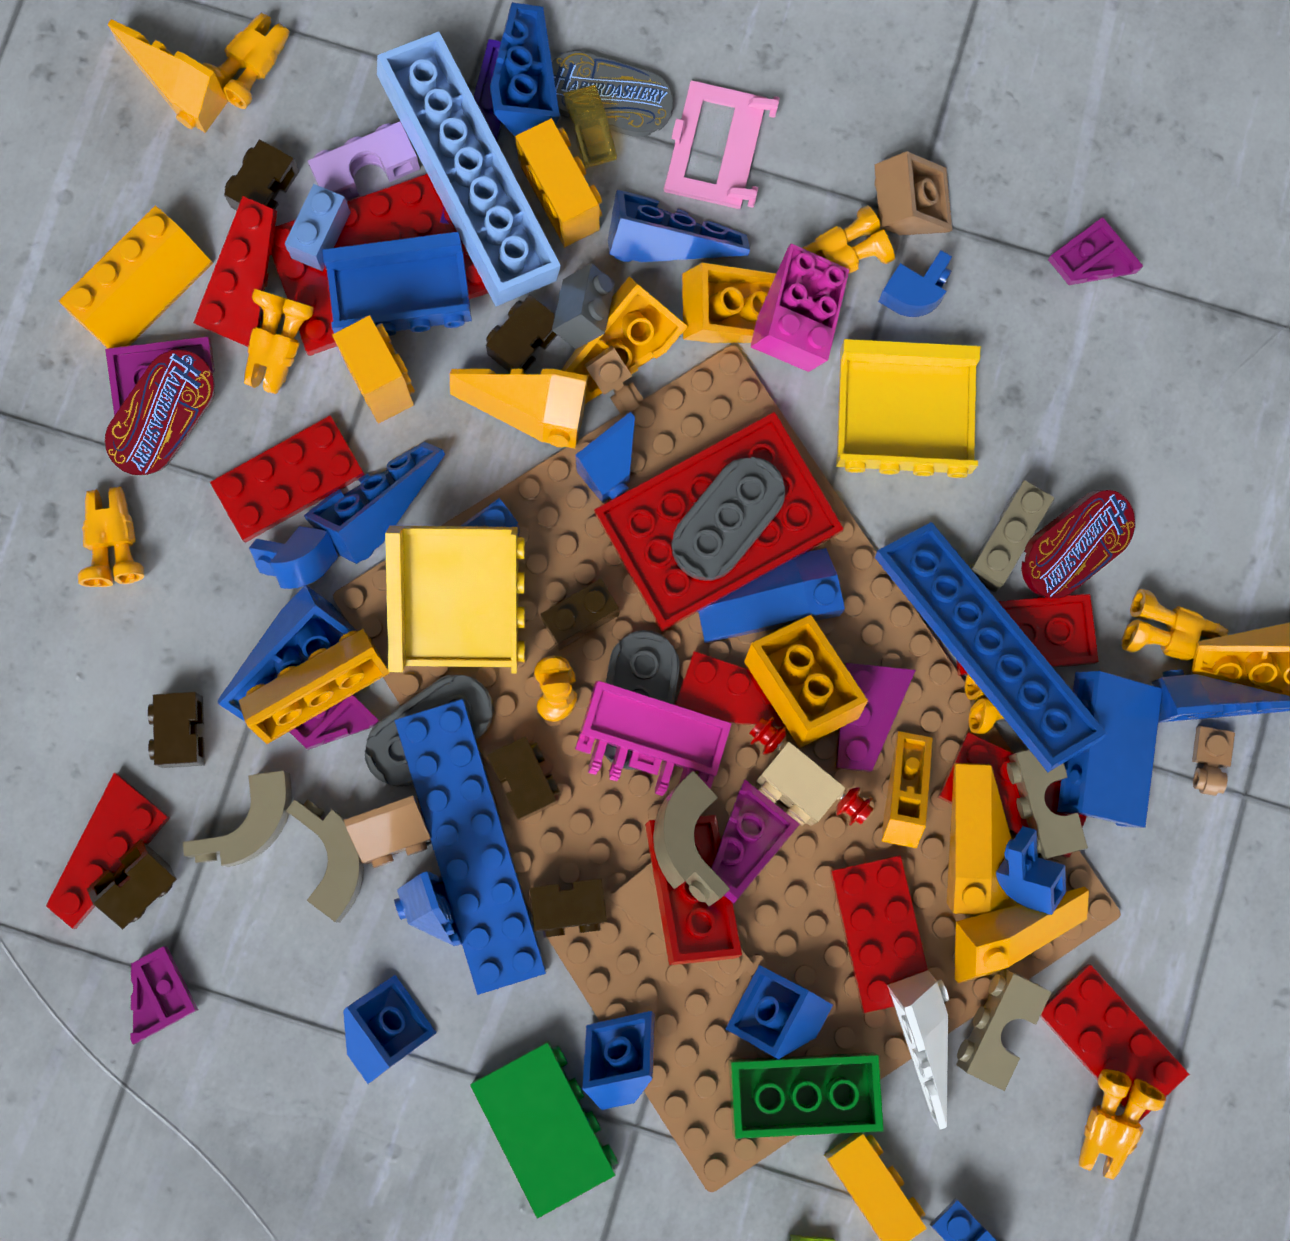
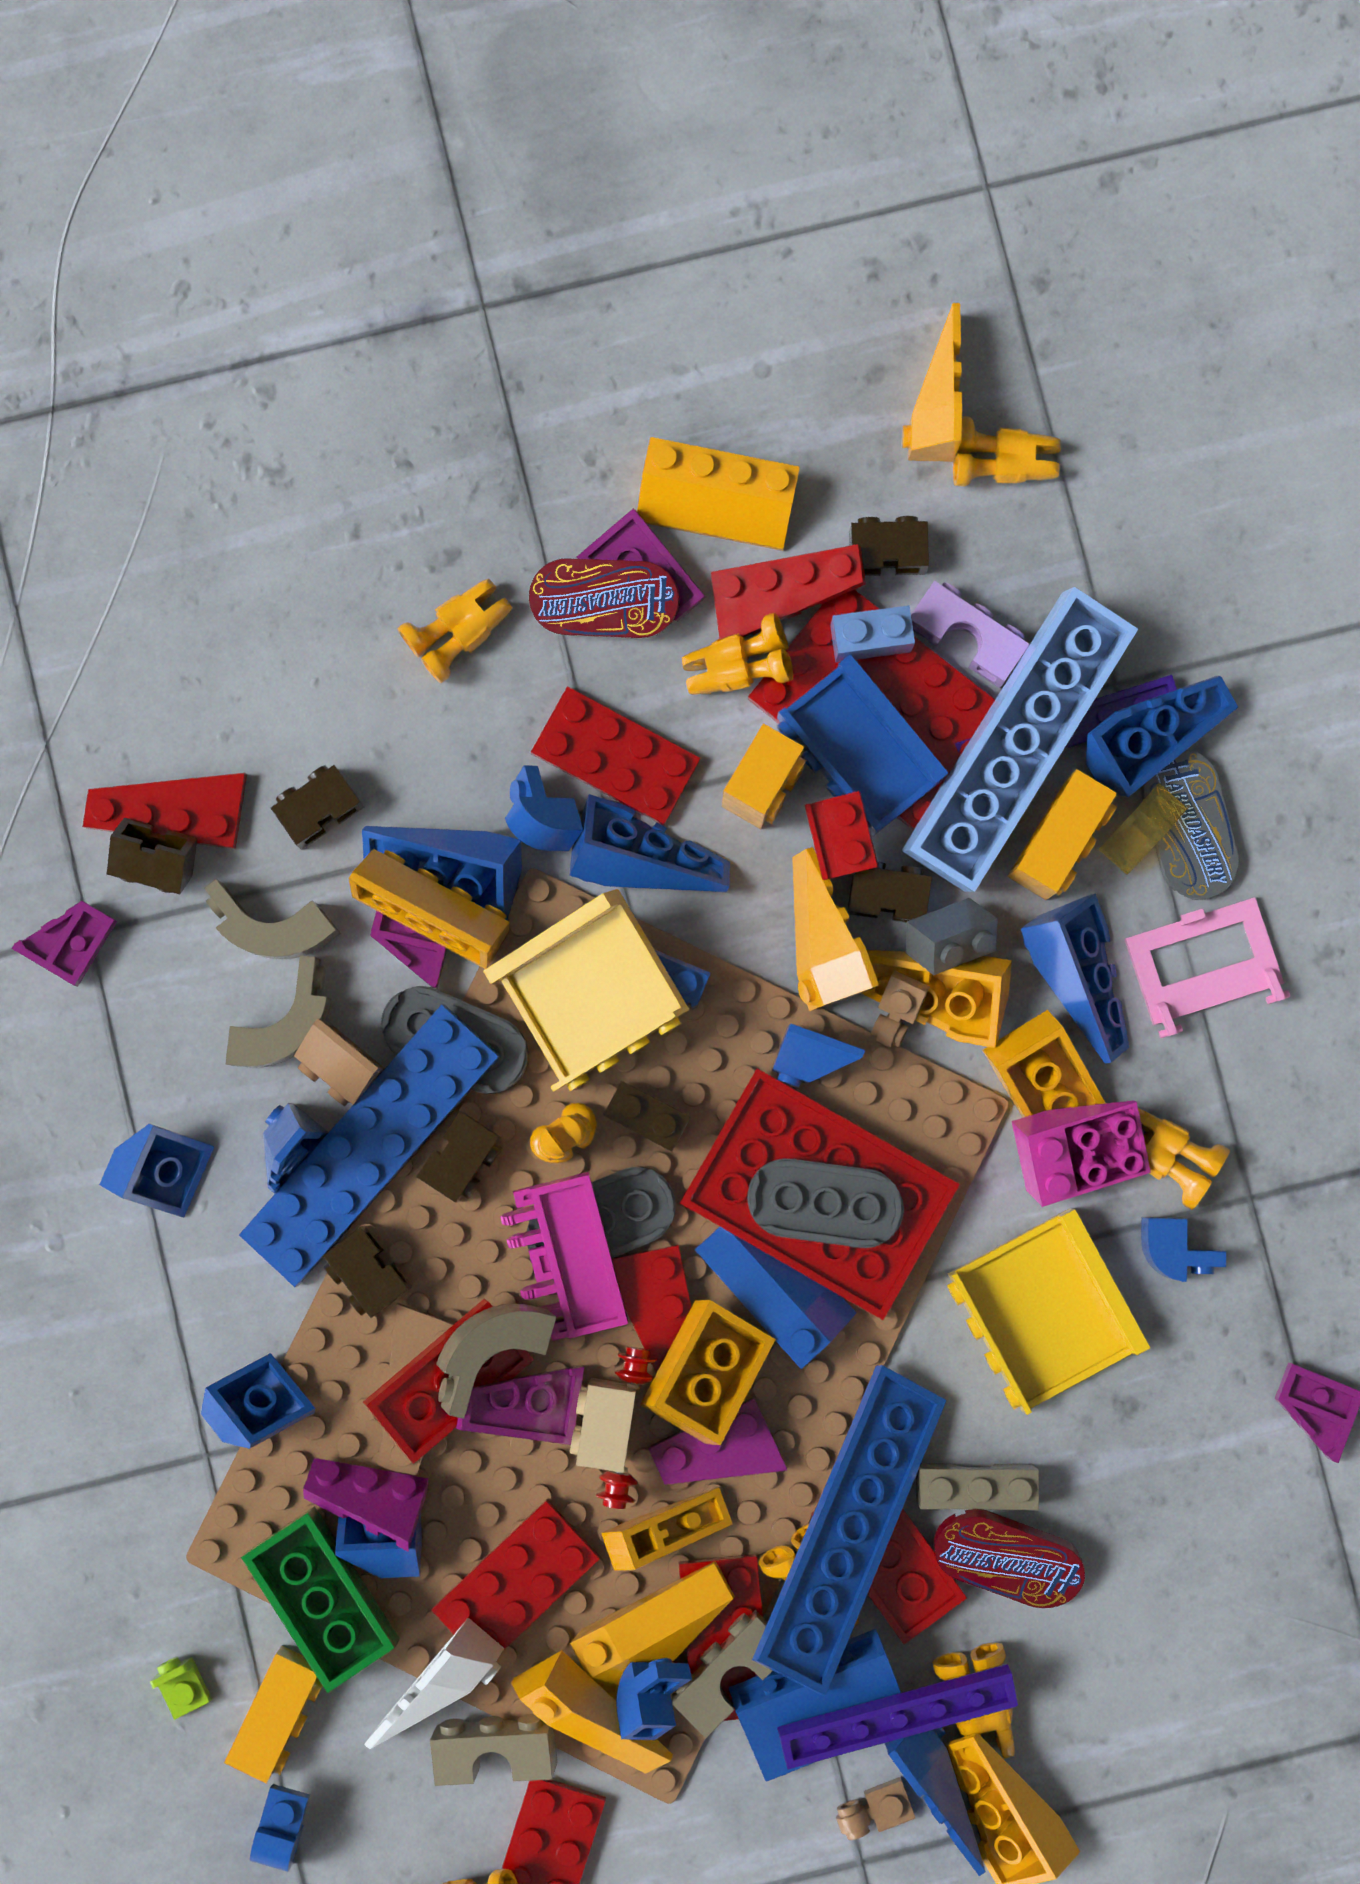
camera: 65 degrees right, 5 degrees up
(456, 337) = (841, 835): none -> red plate
(545, 1128) = (153, 1372): green panel -> none
(749, 1003) = (375, 1497): none -> magenta wing
(912, 195) = (1269, 1189): medium nougat slope -> none
(1152, 693) = (897, 1716): none -> dark purple plate

